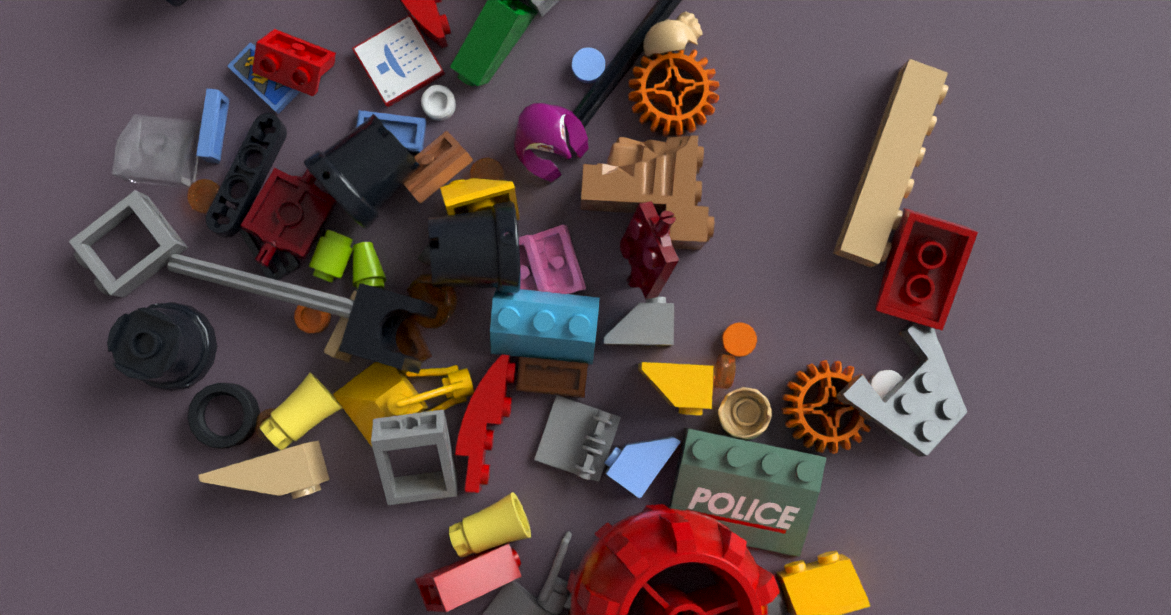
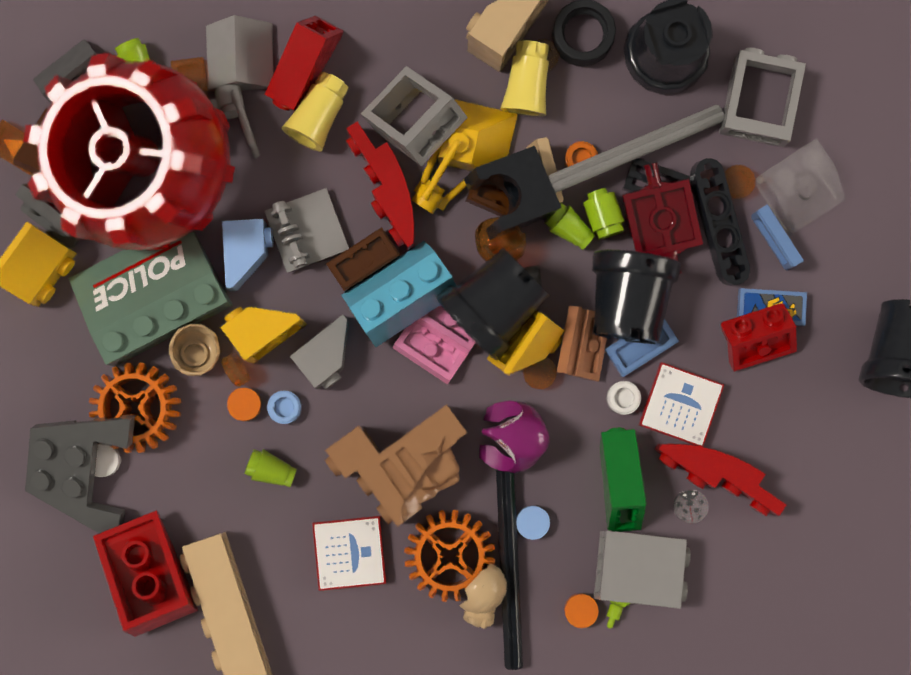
camera: 140 degrees right, 0 degrees up
(649, 249) = (364, 410): dark red plate -> none
(709, 311) = (284, 407): none -> light blue tile
(749, 157) = (349, 553): none -> white tile
(761, 273) = (269, 469): none -> lime cone

